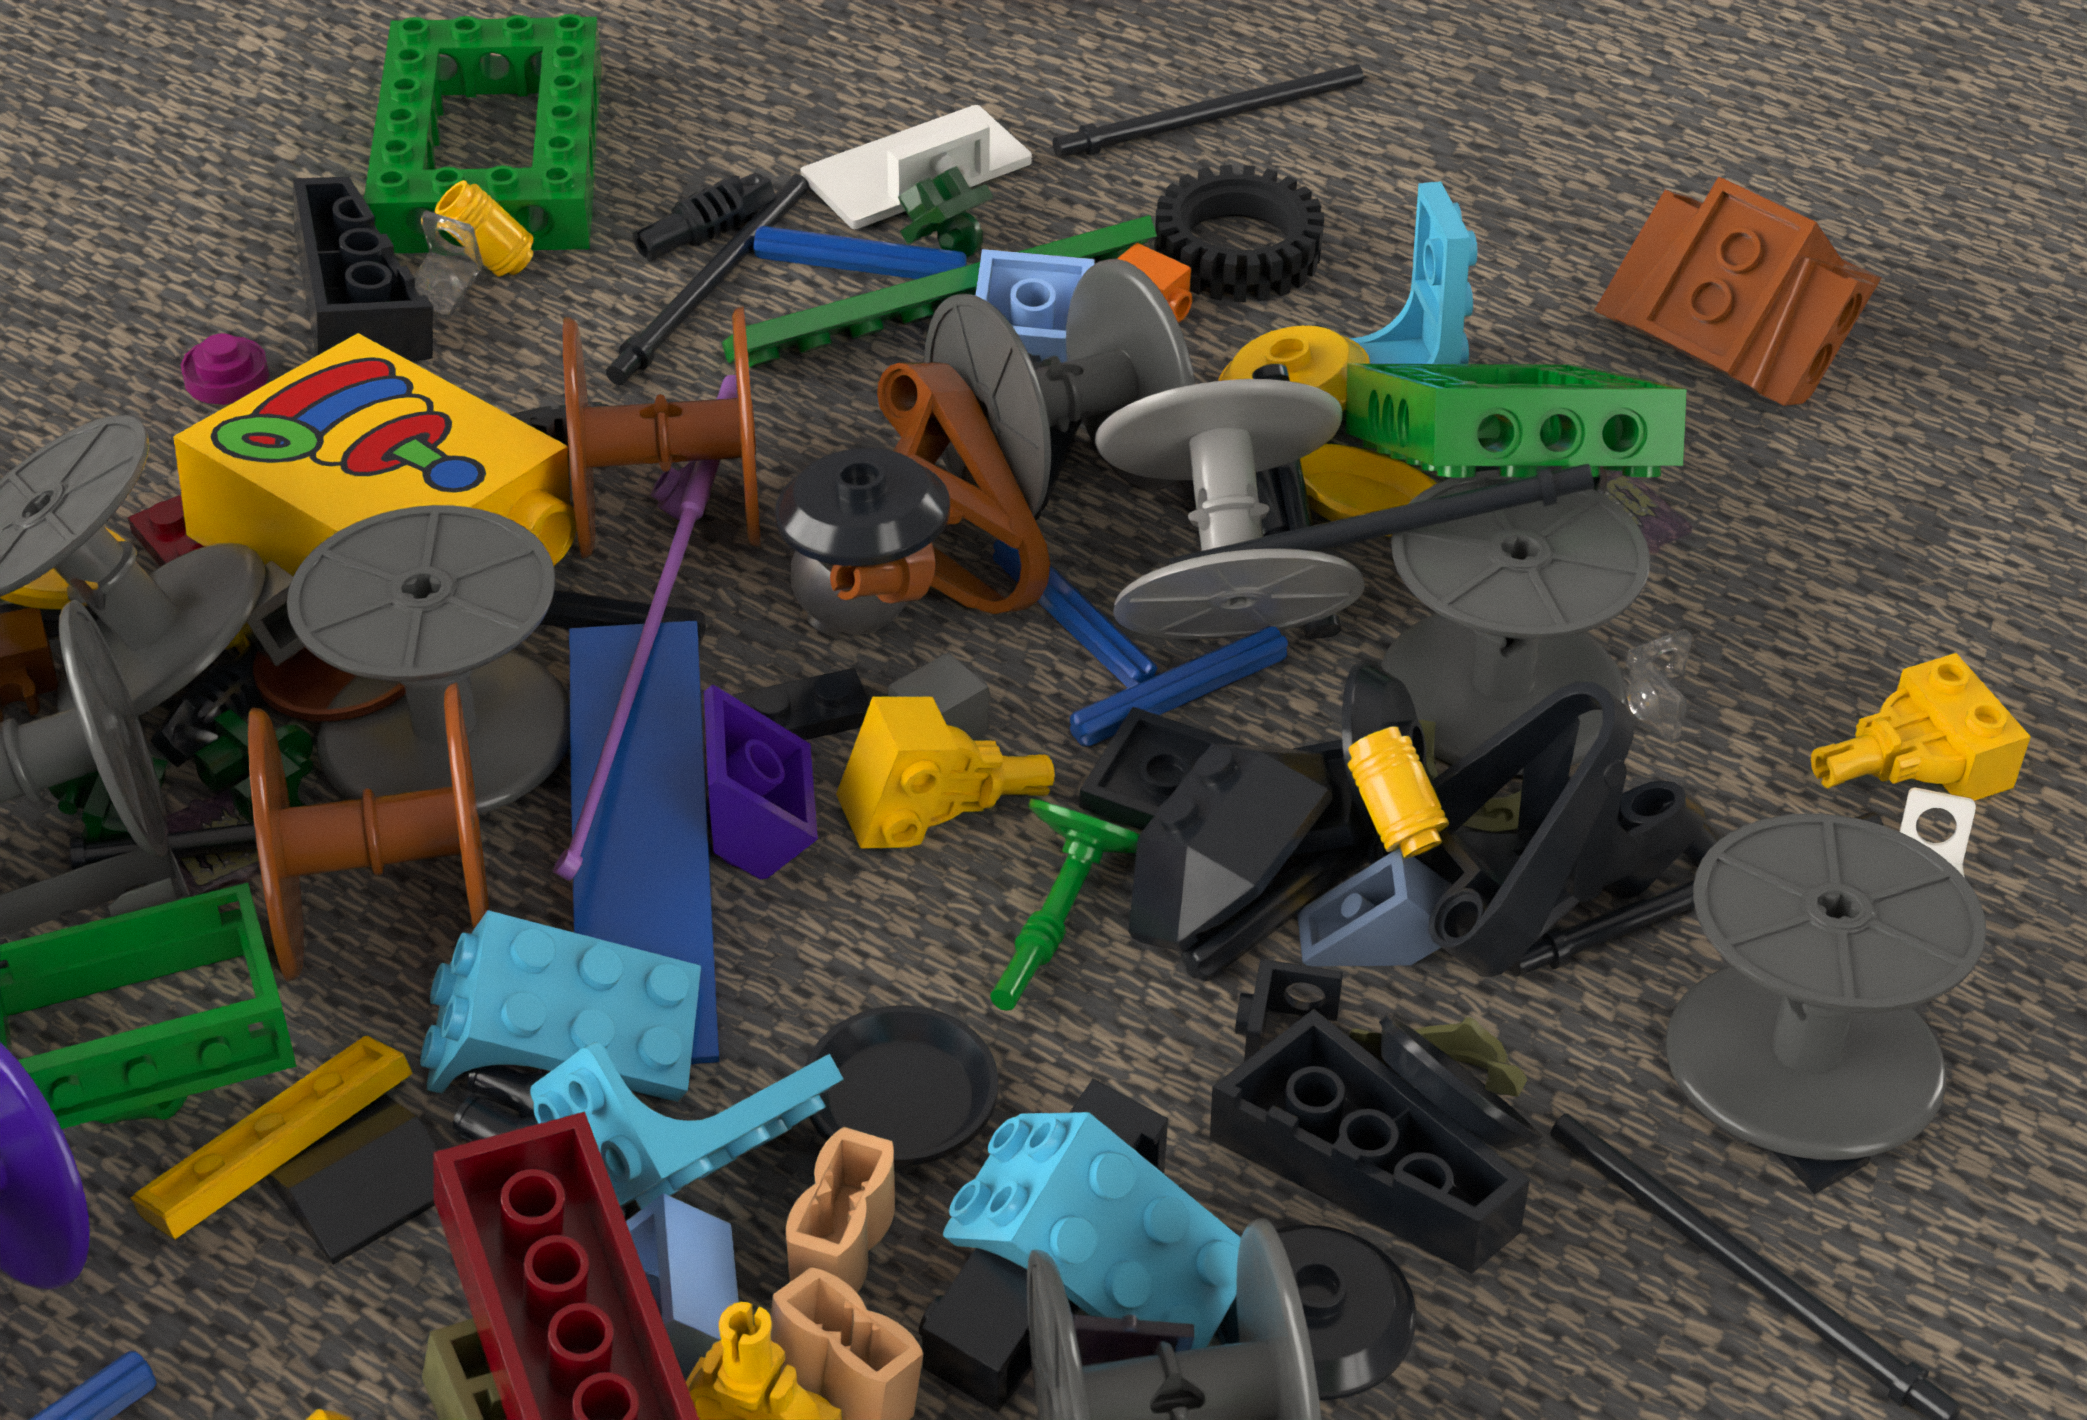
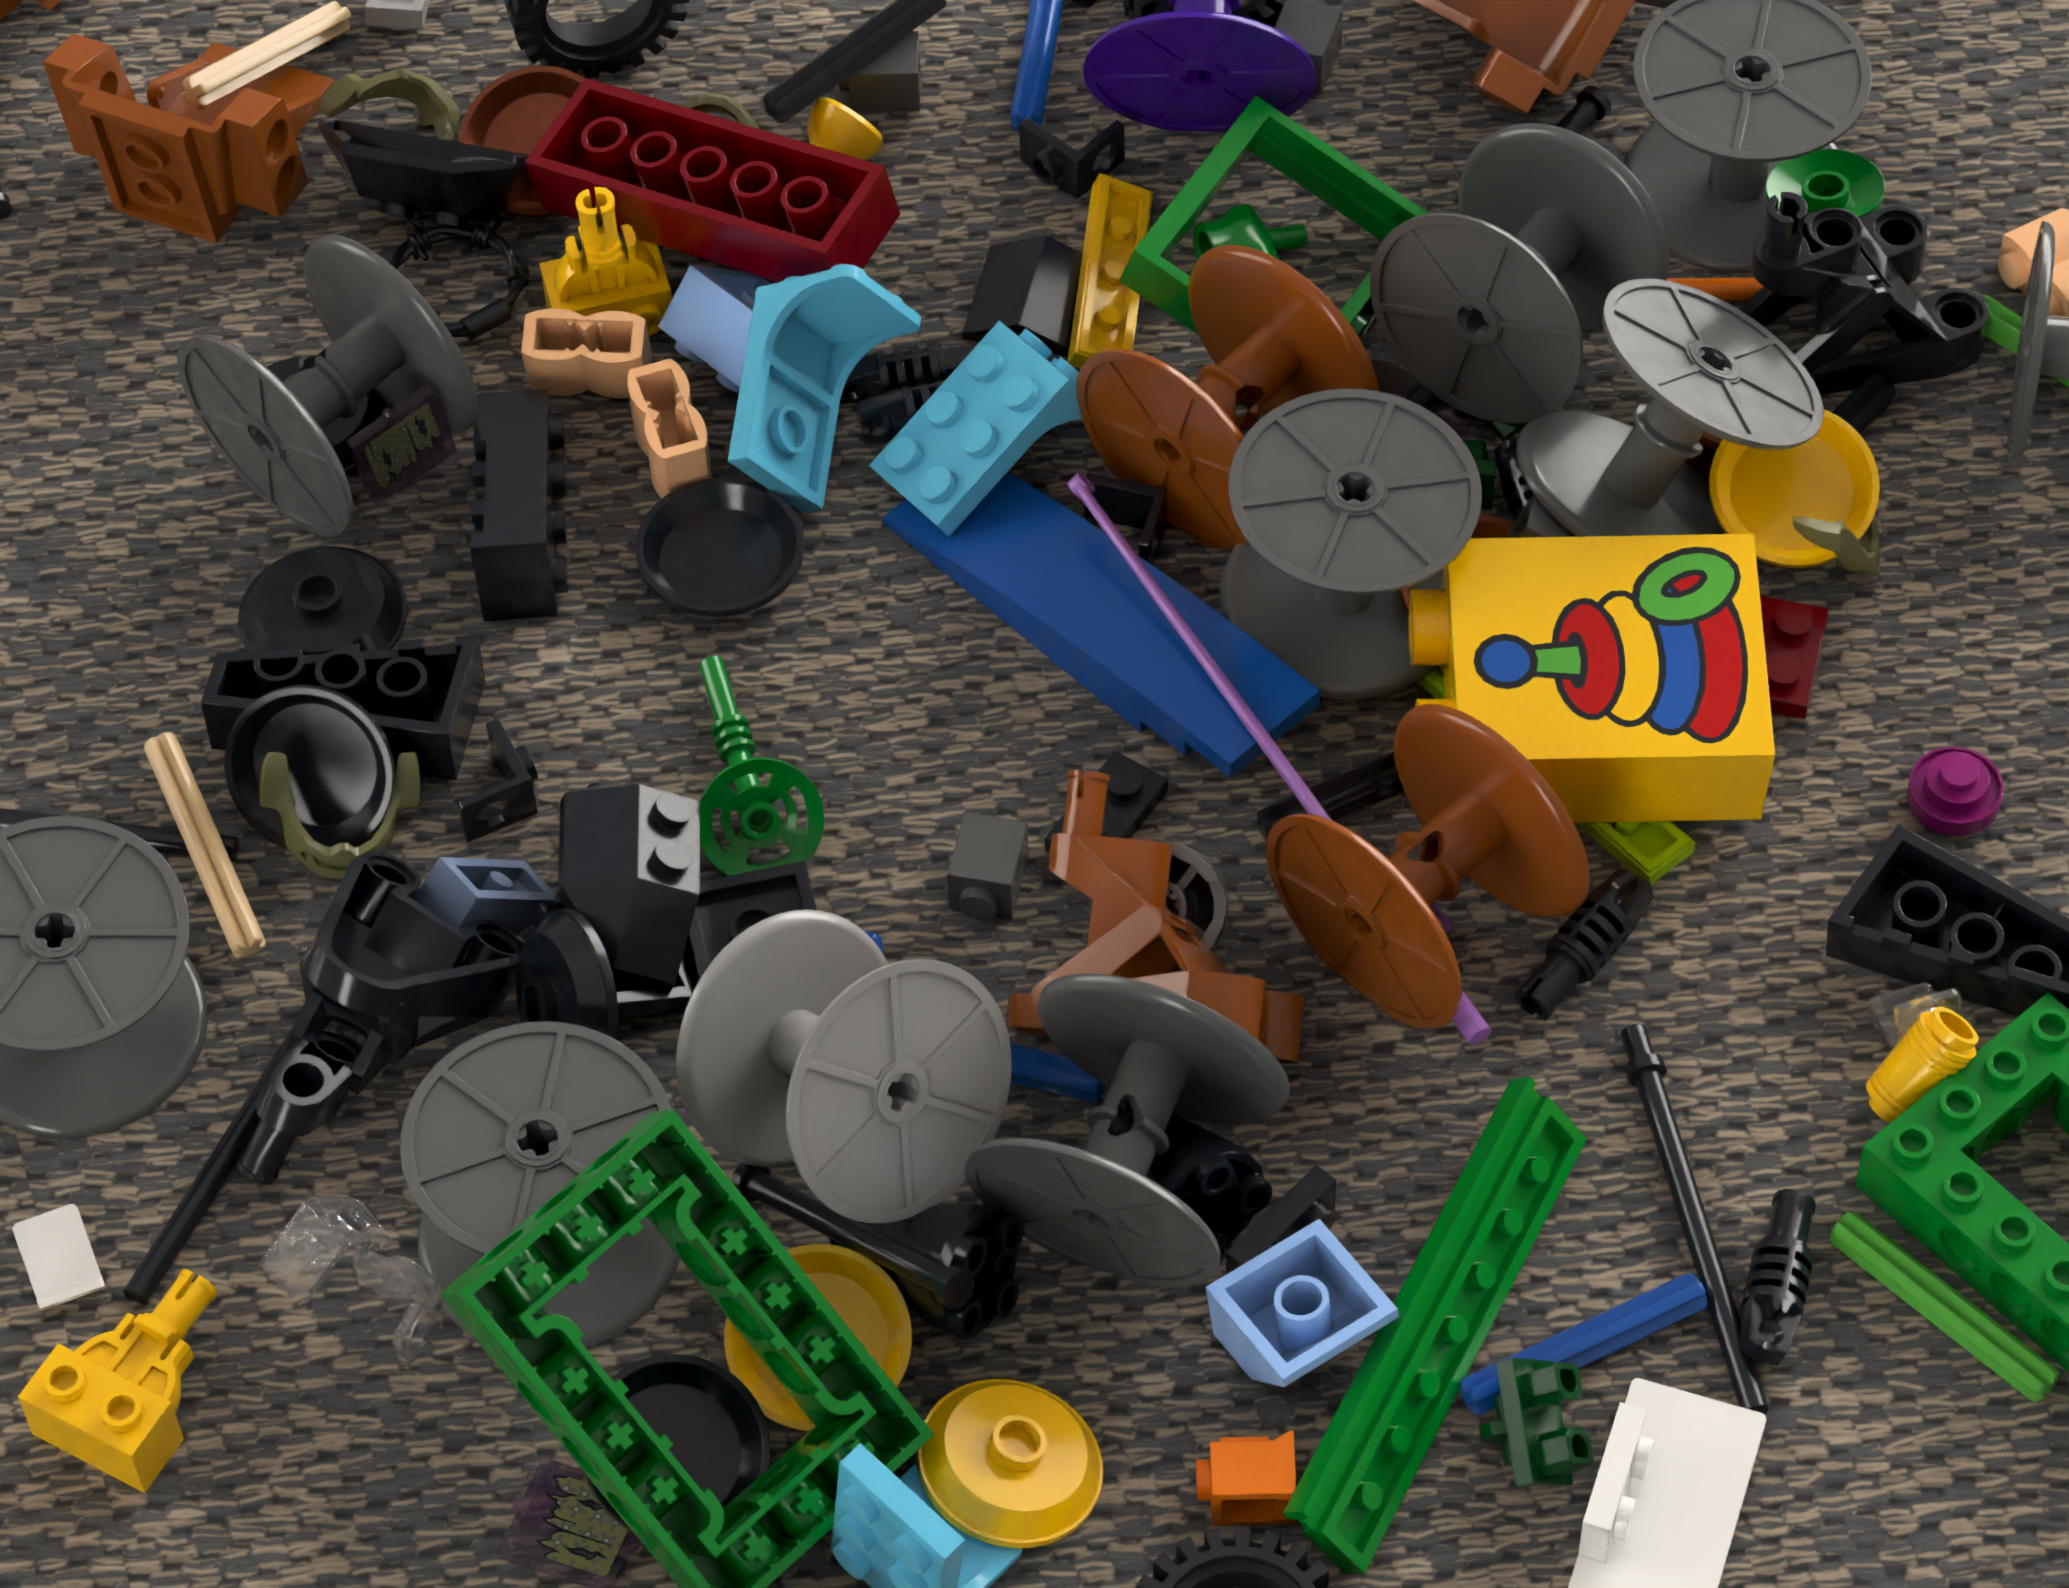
camera: 145 degrees right, 10 degrees up
(182, 1276) = (1061, 164): none -> black bracket
(512, 895) = (1134, 506): none -> black bracket
(627, 165) = (1944, 1306): none -> bright green axle
(756, 787) = (1040, 661): dark purple slope -> none
(862, 508) = (1131, 827): black piece -> none
(921, 772) = (933, 752): yellow brick -> none
(1105, 1217) = (485, 454): medium azure bracket -> none
(1397, 792) = (498, 900): yellow head -> none
(1542, 487) = (539, 1157): black bar -> none
(1595, 1116) = (204, 845): none -> tan axle
(1693, 748) = (316, 1242): none -> clear bracket

